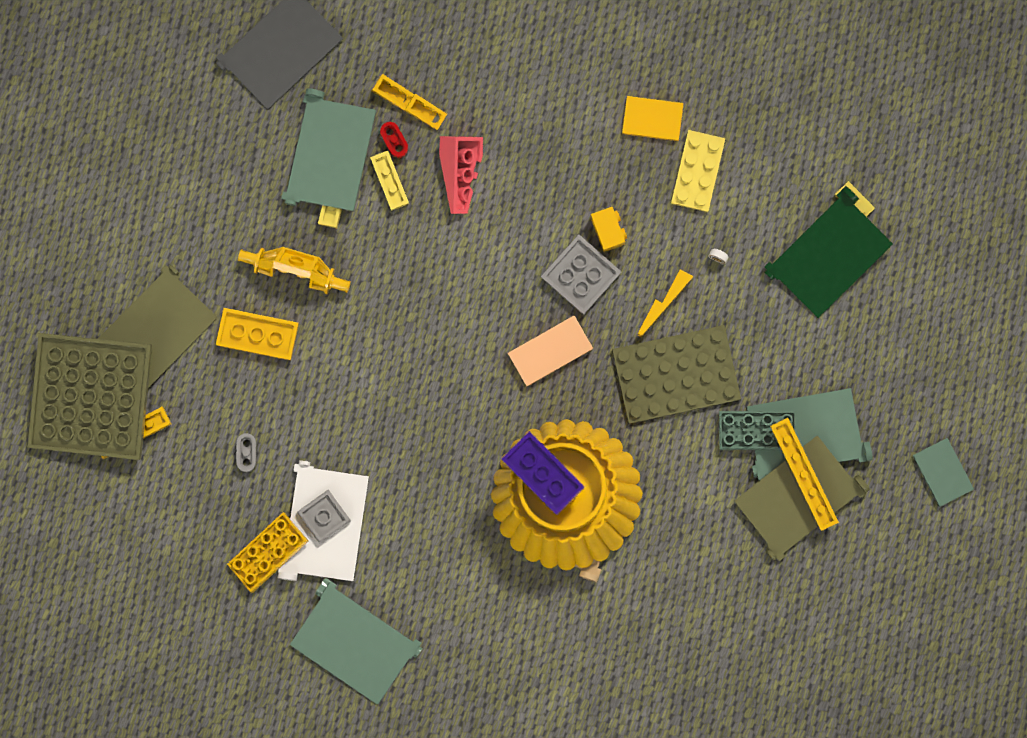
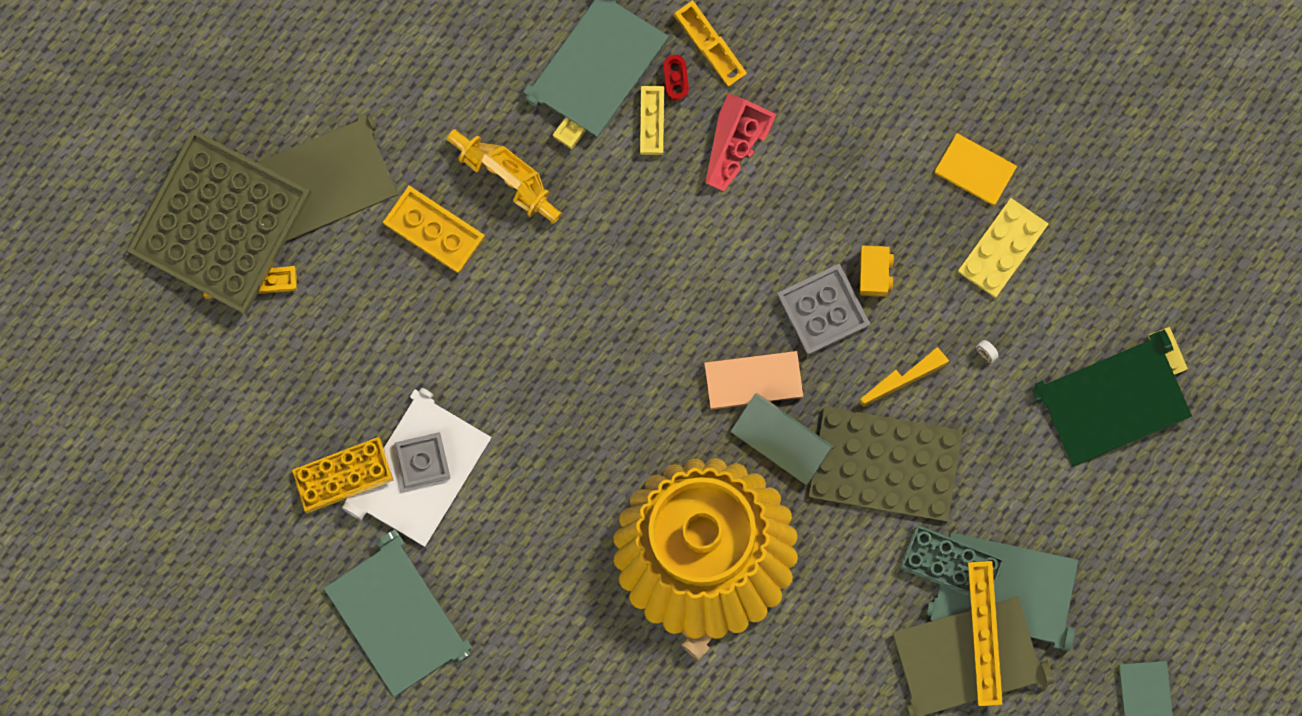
camera: 20 degrees right, 5 degrees down
(246, 452) = (365, 355): light grey plate -> none
(543, 473) = (686, 505): dark purple plate -> none
(590, 388) = (781, 438): none -> sand green tile

